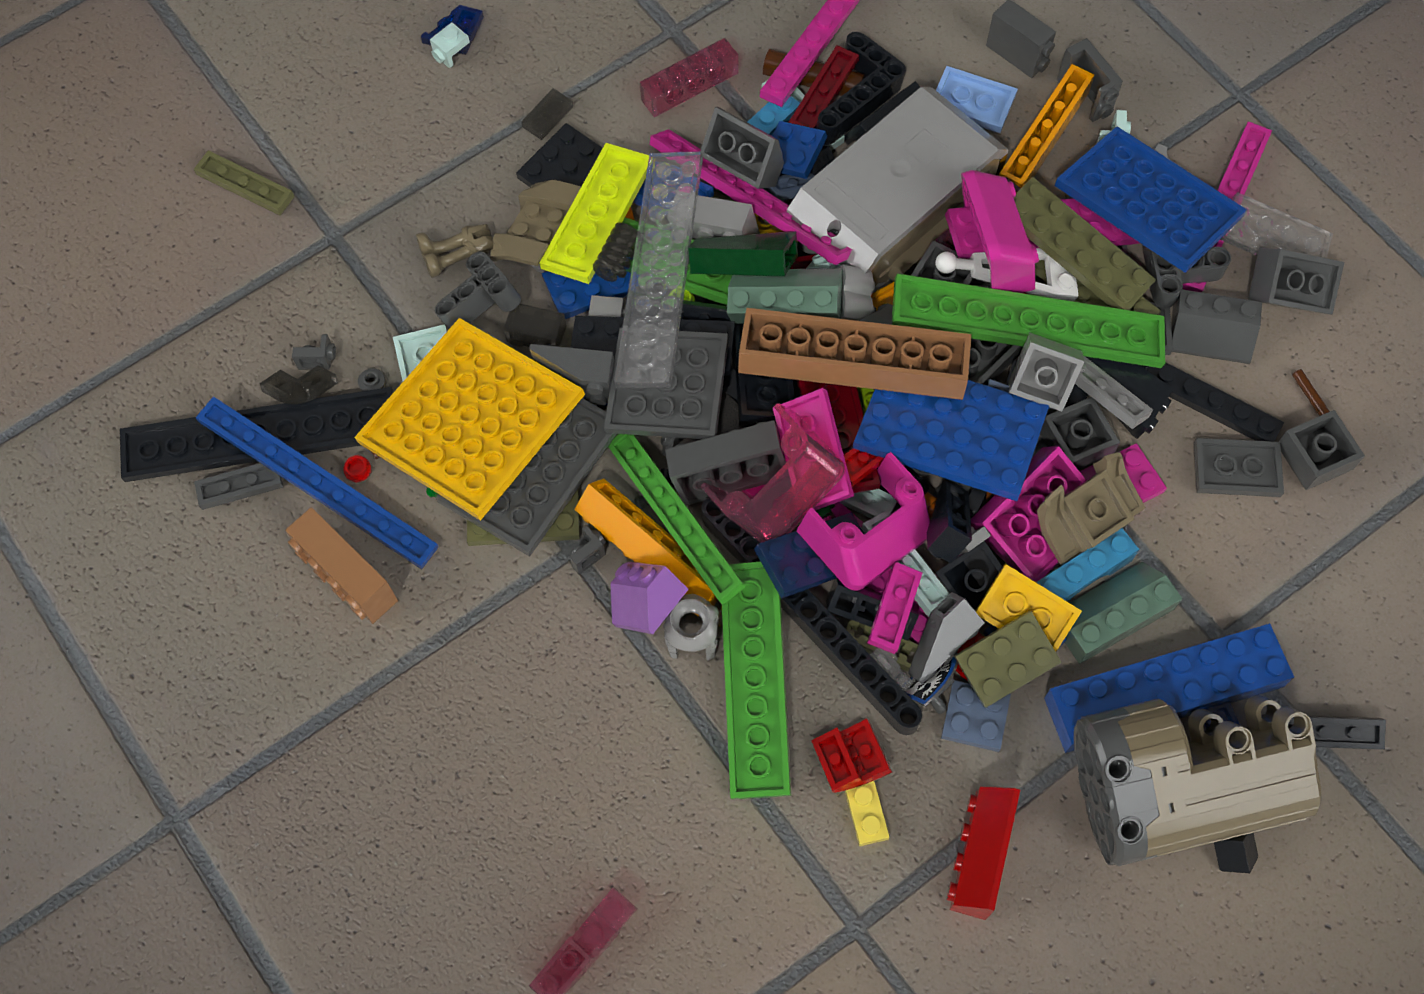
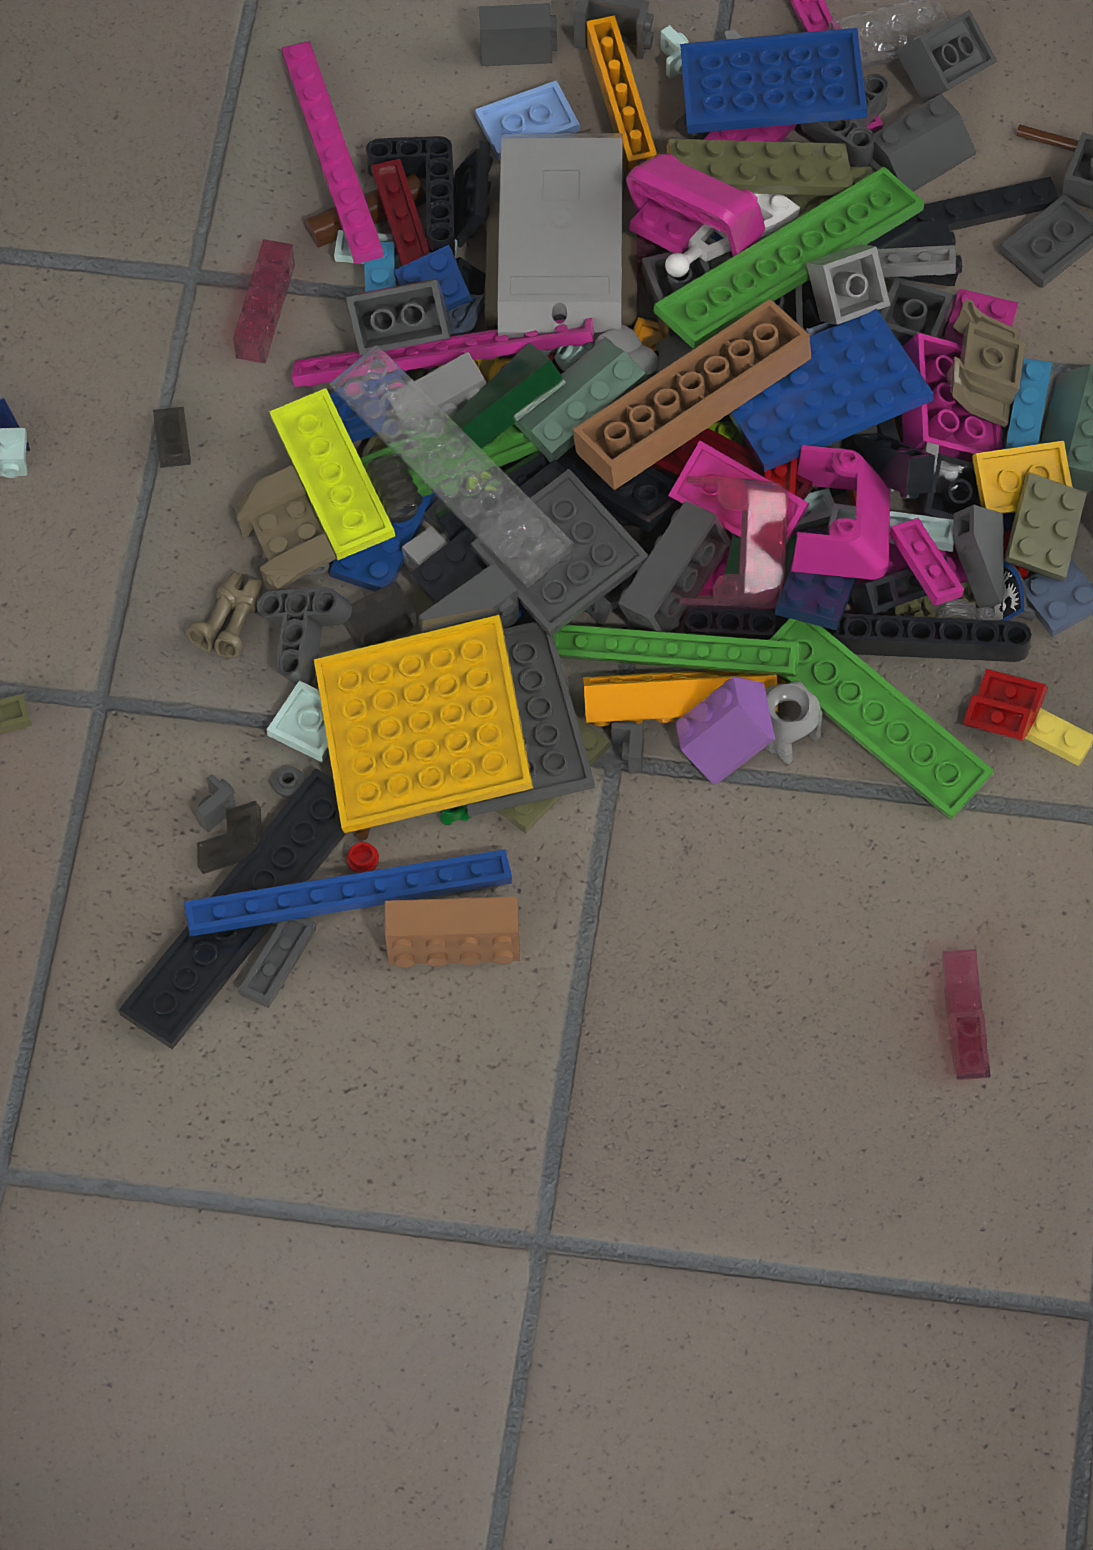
camera: 45 degrees left, 5 degrees down
(563, 158) = (236, 460): black plate -> none

